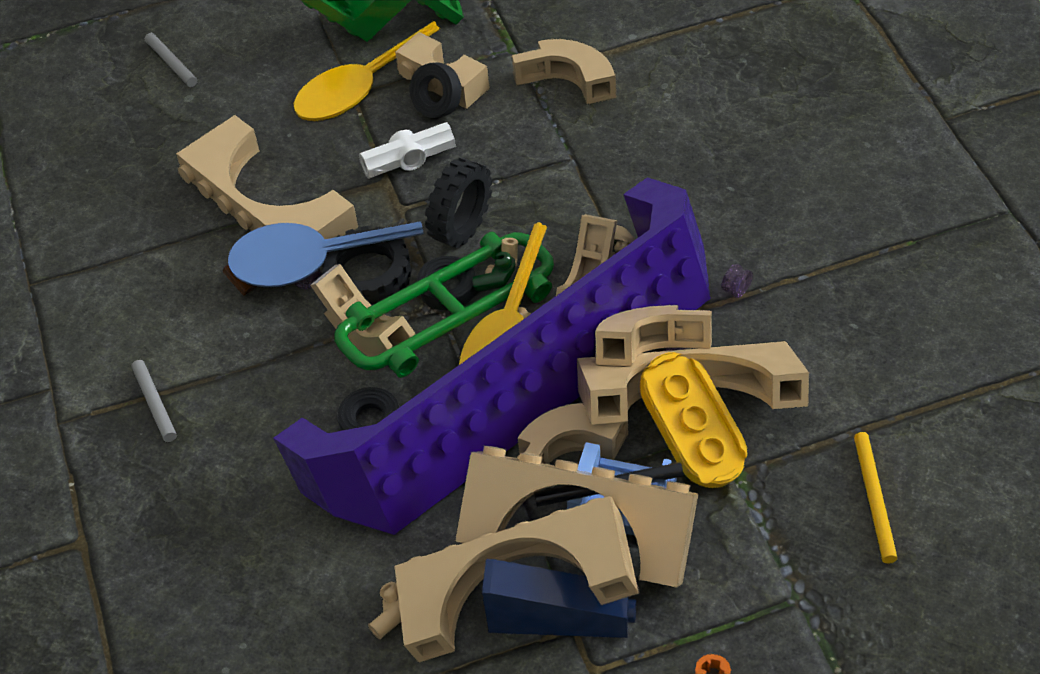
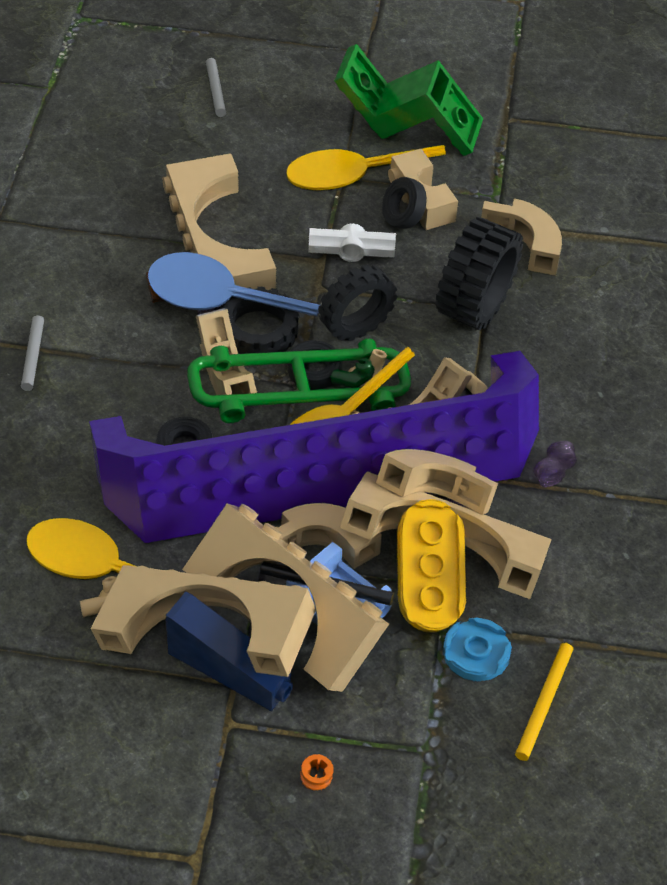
camera: 20 degrees right, 0 degrees up
(326, 575) = (74, 548): none -> yellow piece
(558, 122) = (479, 273): none -> black tyre
(738, 255) = (564, 452): none -> clear purple bush
(781, 479) = (477, 649): none -> dark azure tile

